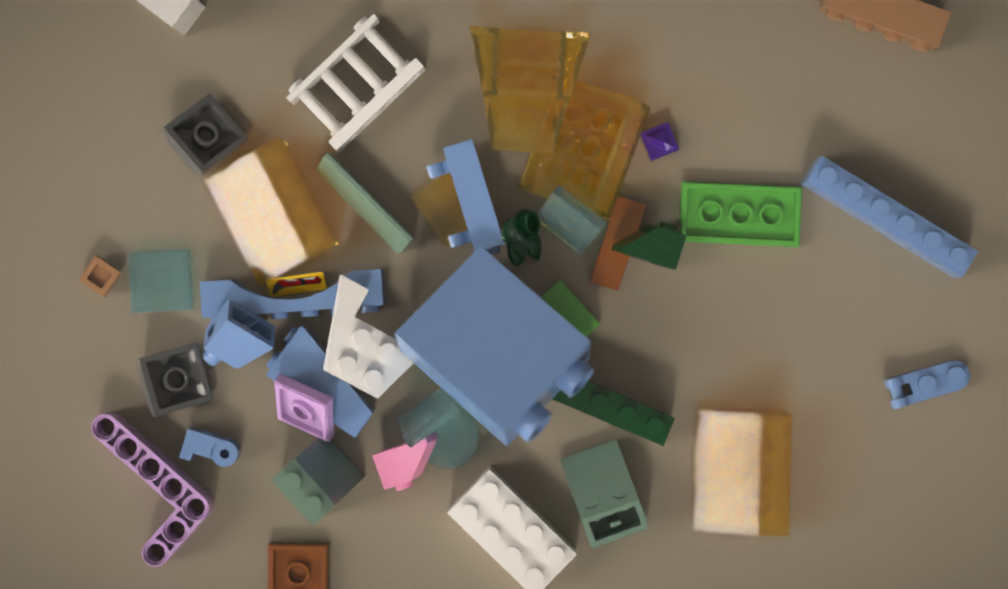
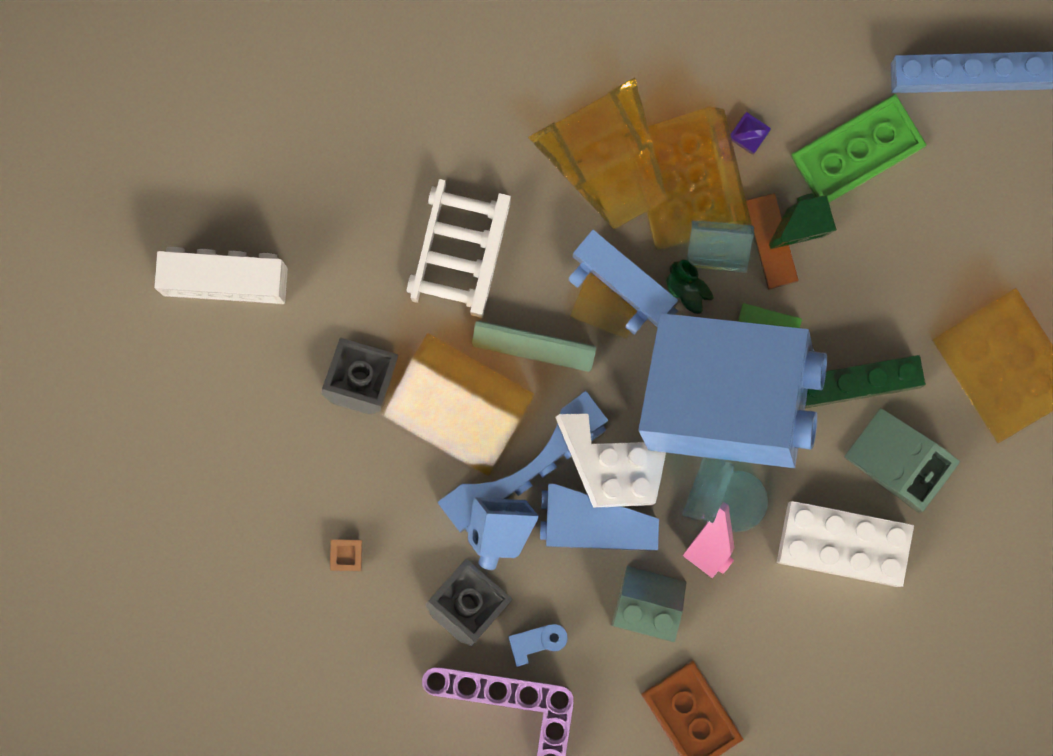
camera: 30 degrees left, 5 degrees down
(160, 281) = (400, 527): clear light blue tile -> none
(296, 284) = (520, 453): yellow sticker -> none
(304, 408) = (598, 551): lavender tile -> none

